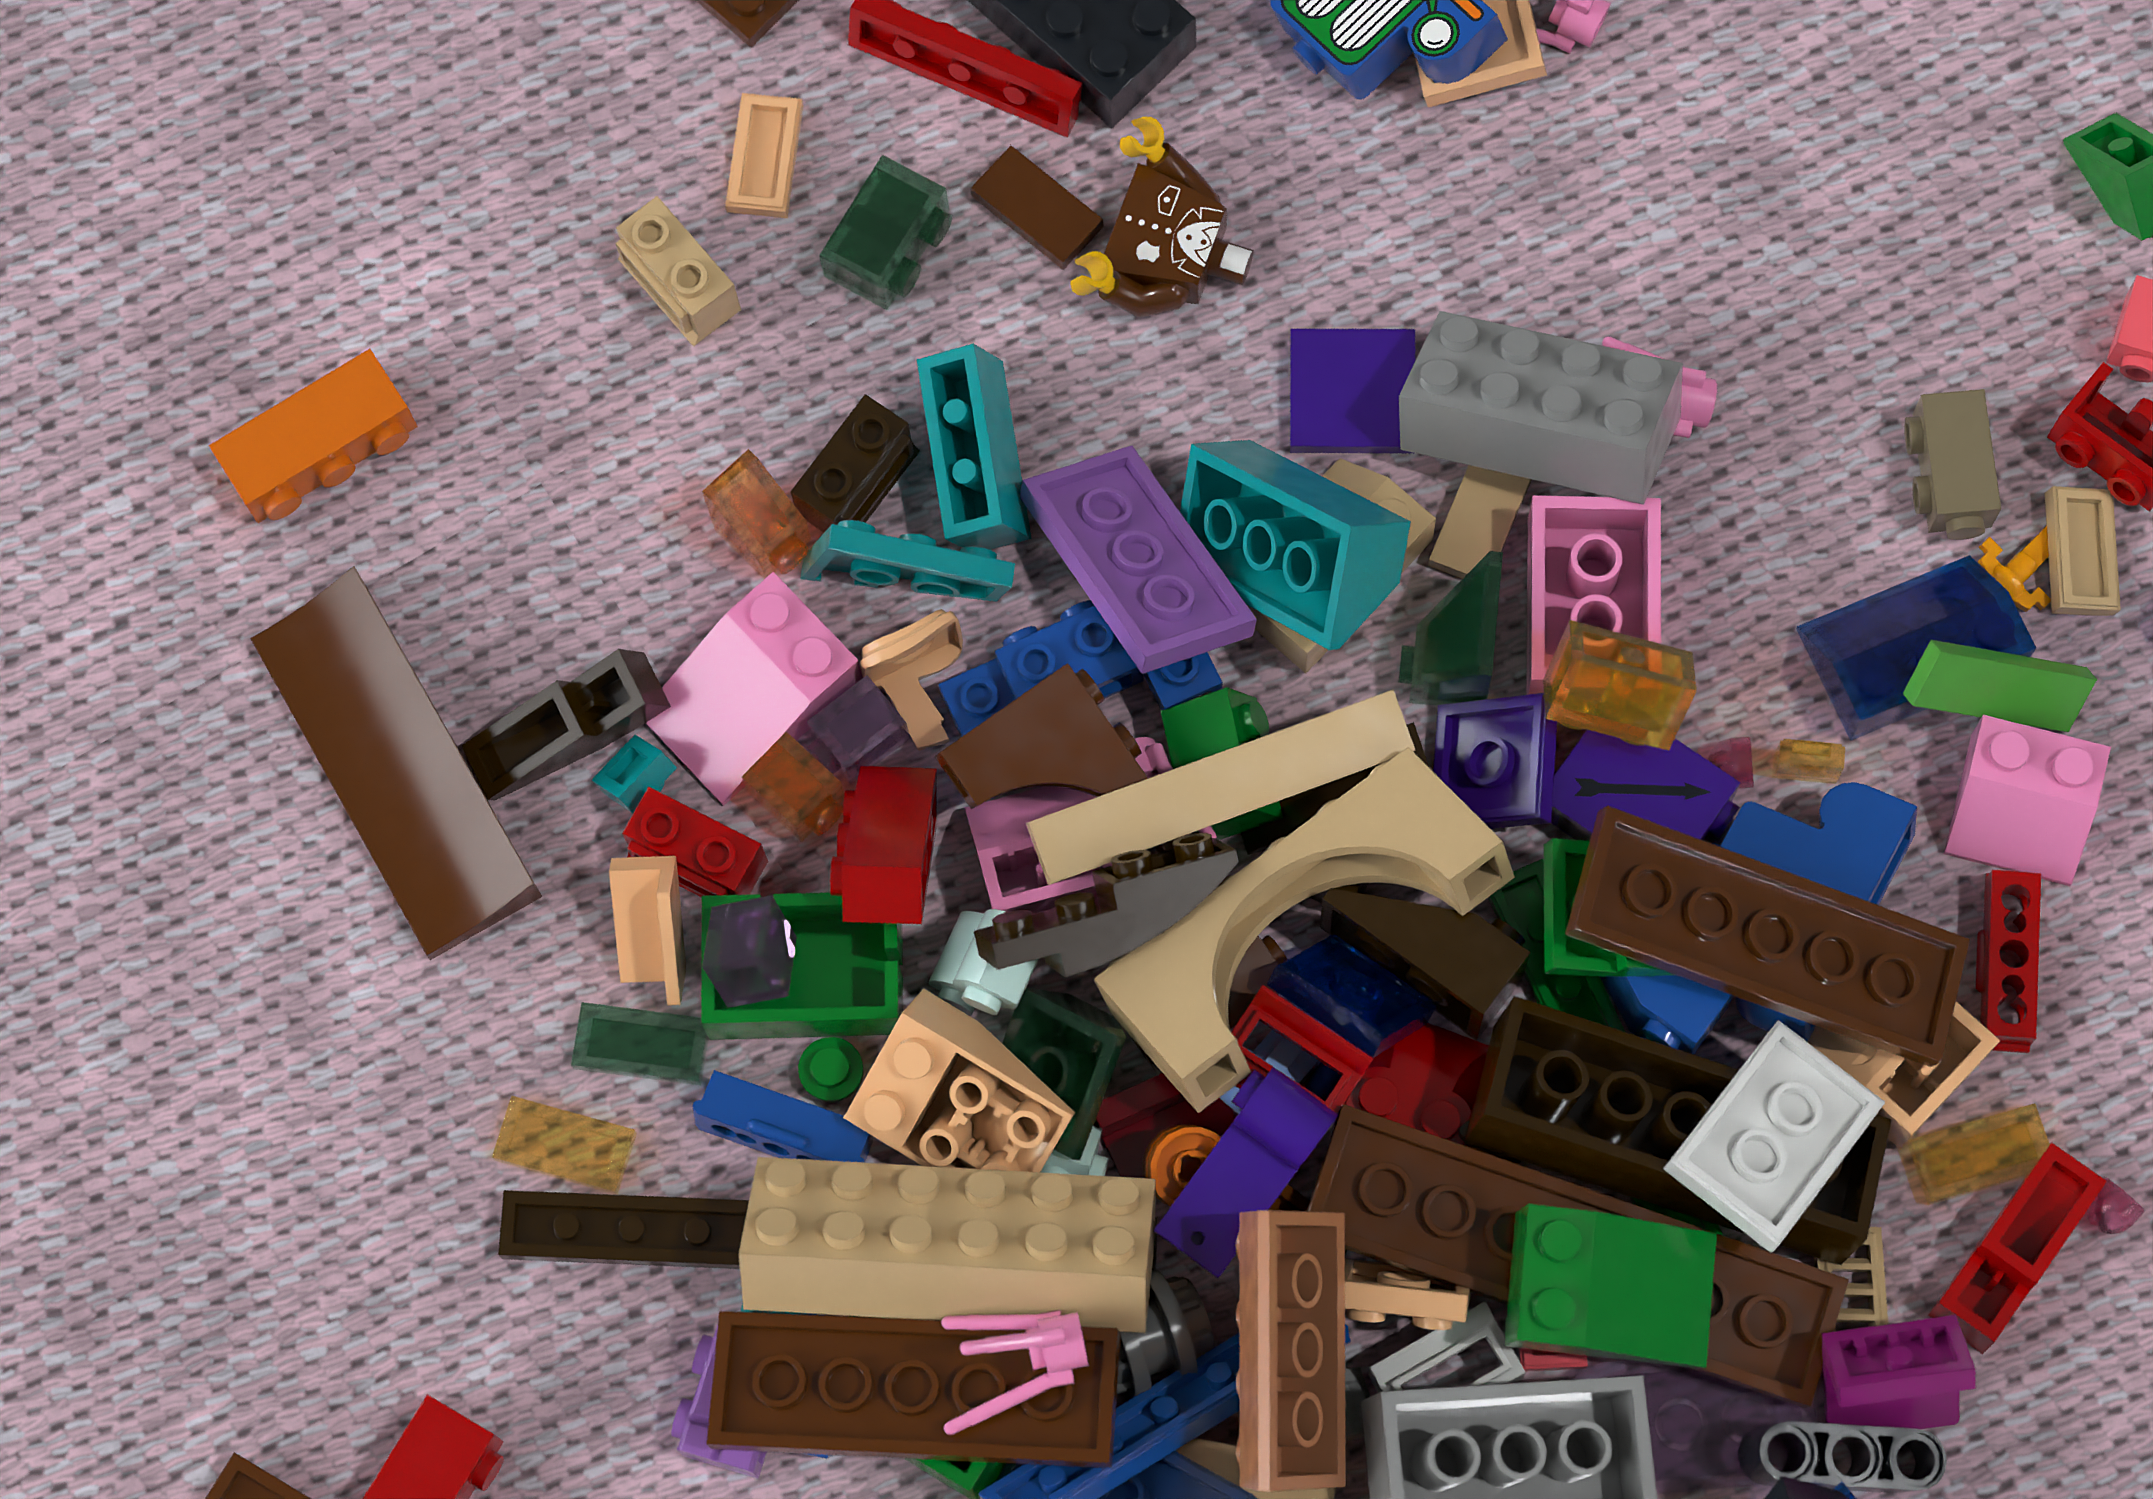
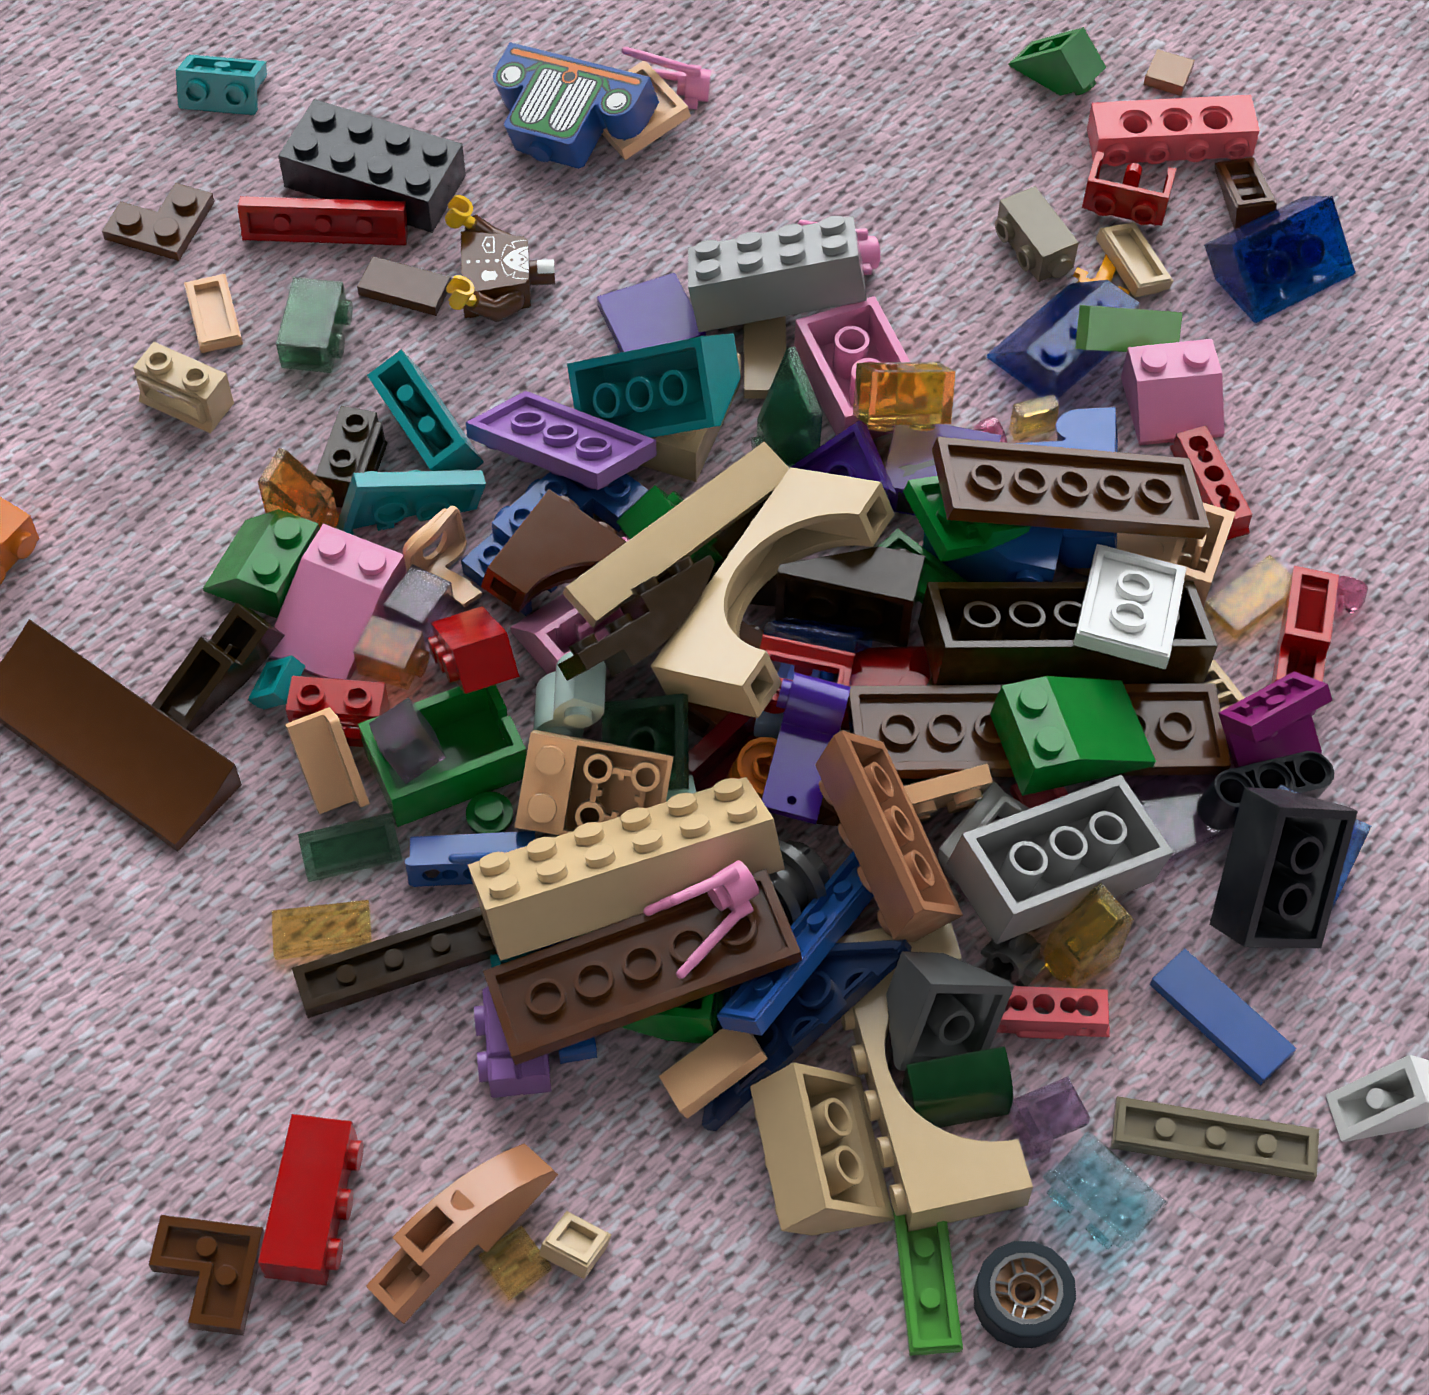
camera: 30 degrees left, 15 degrees down
(683, 582) = (262, 561): none -> green slope

